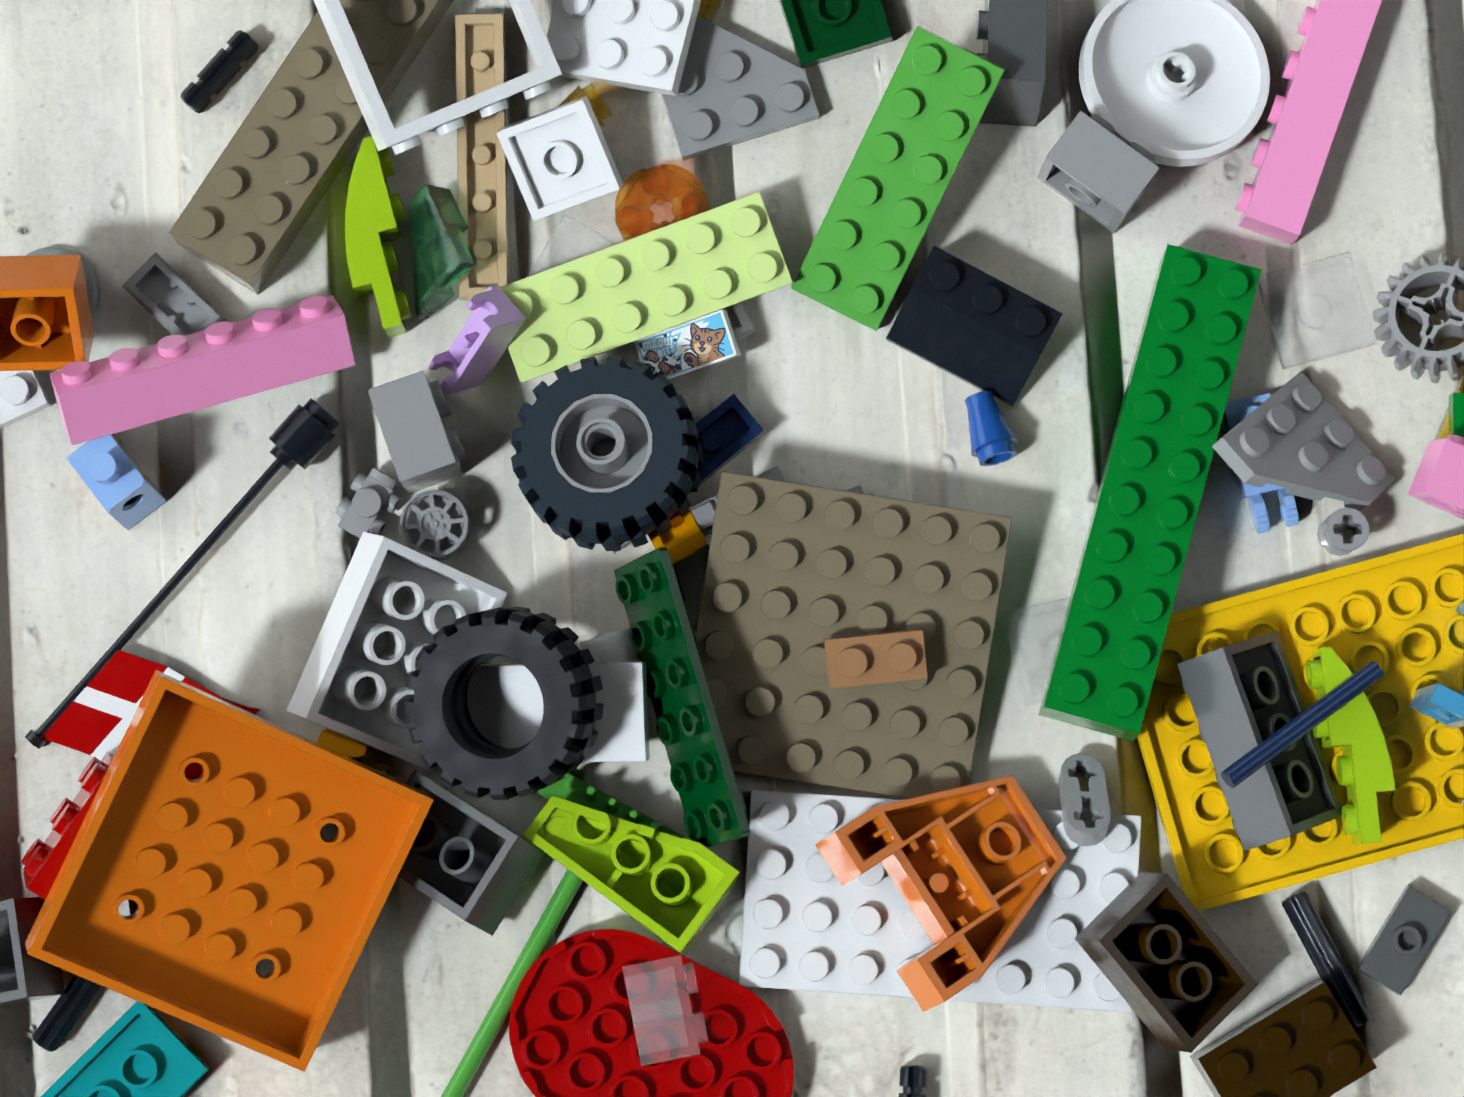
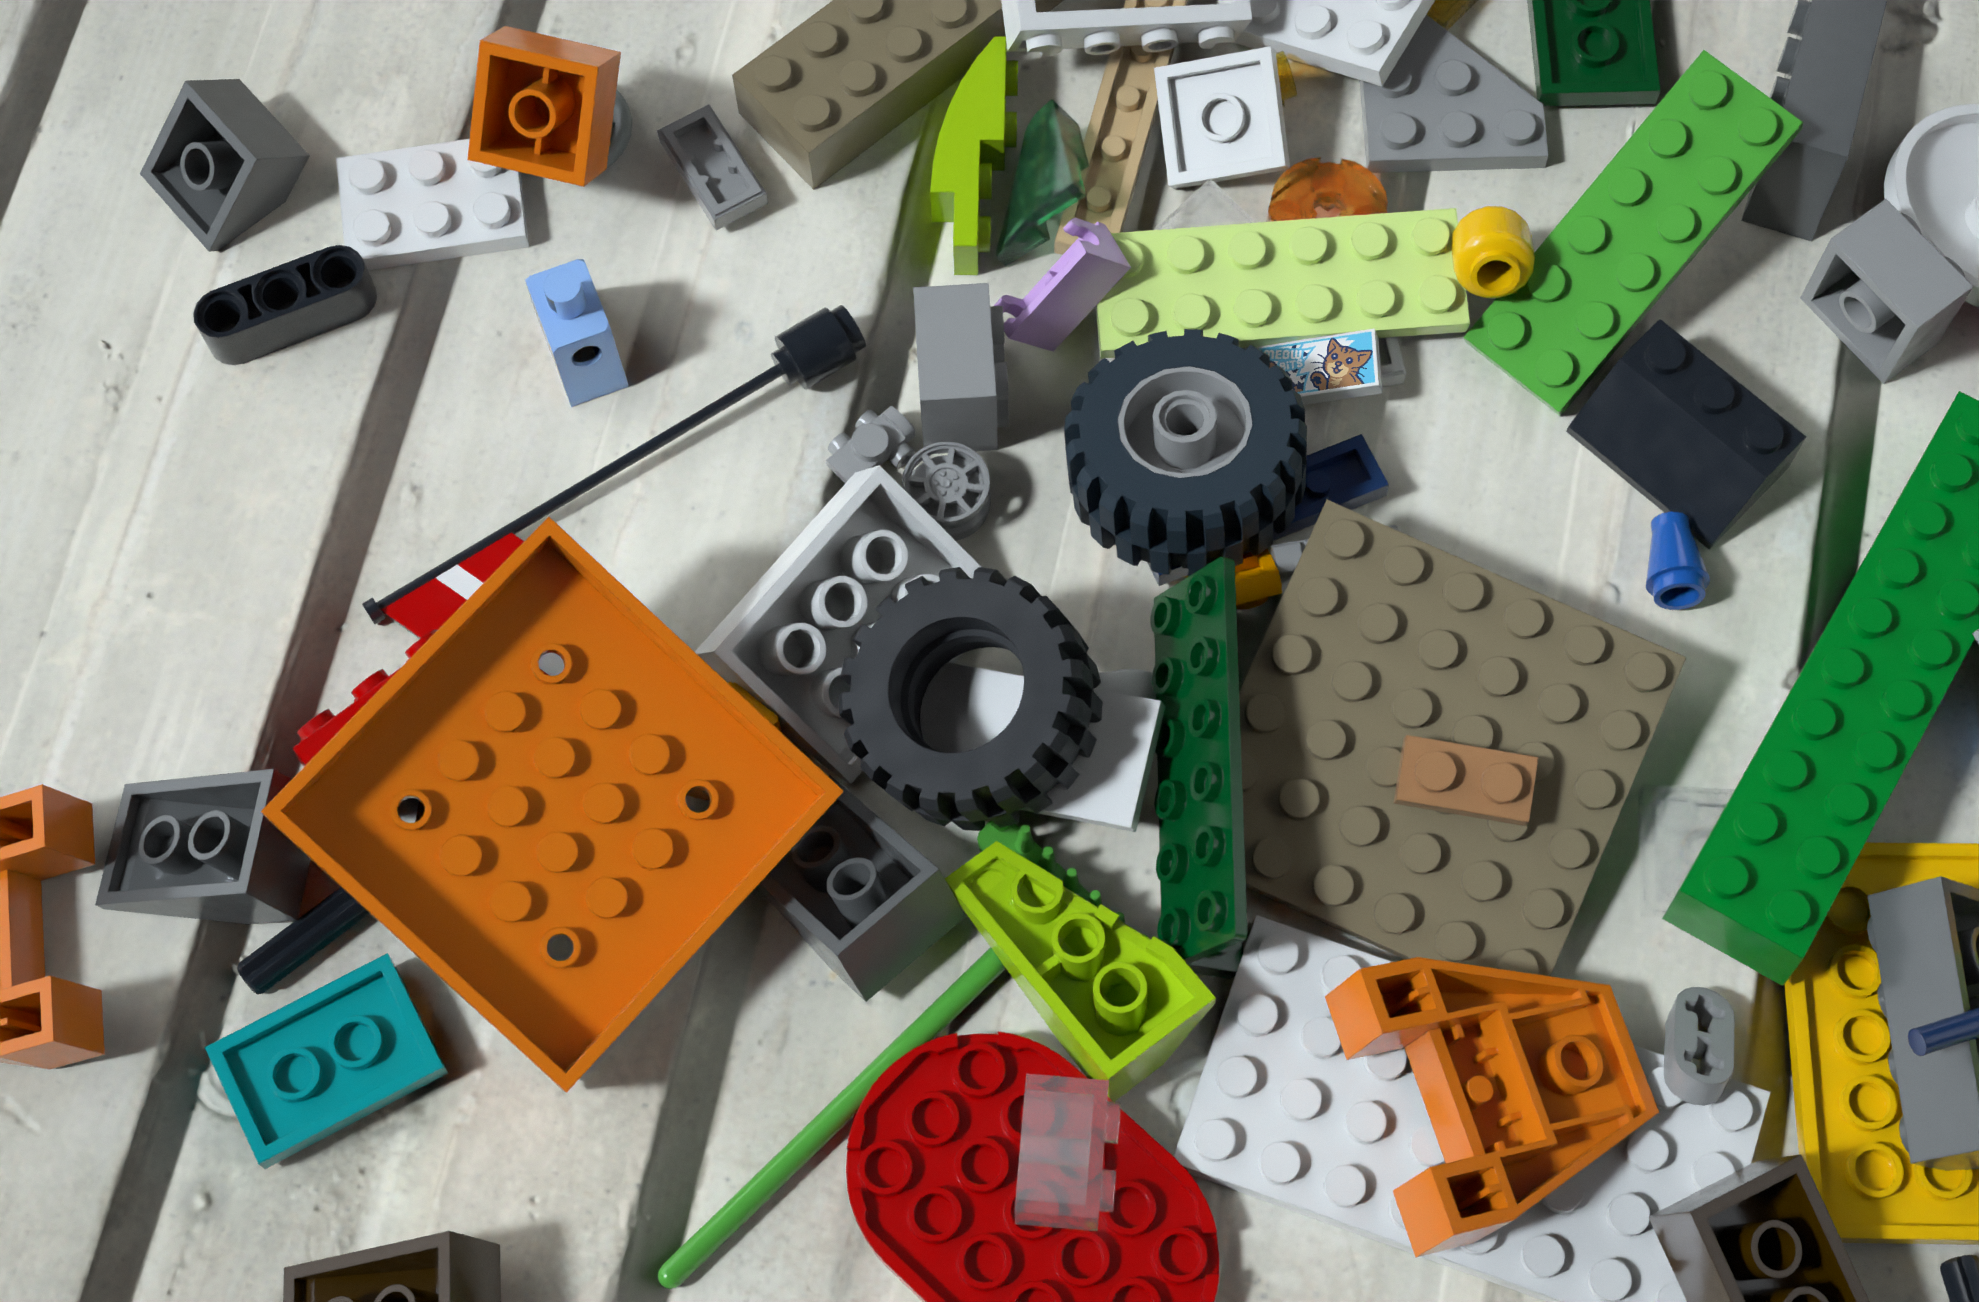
camera: 20 degrees right, 15 degrees down
(202, 368) = (721, 226): bright pink brick -> none
(796, 225) = (1492, 252): none -> yellow head

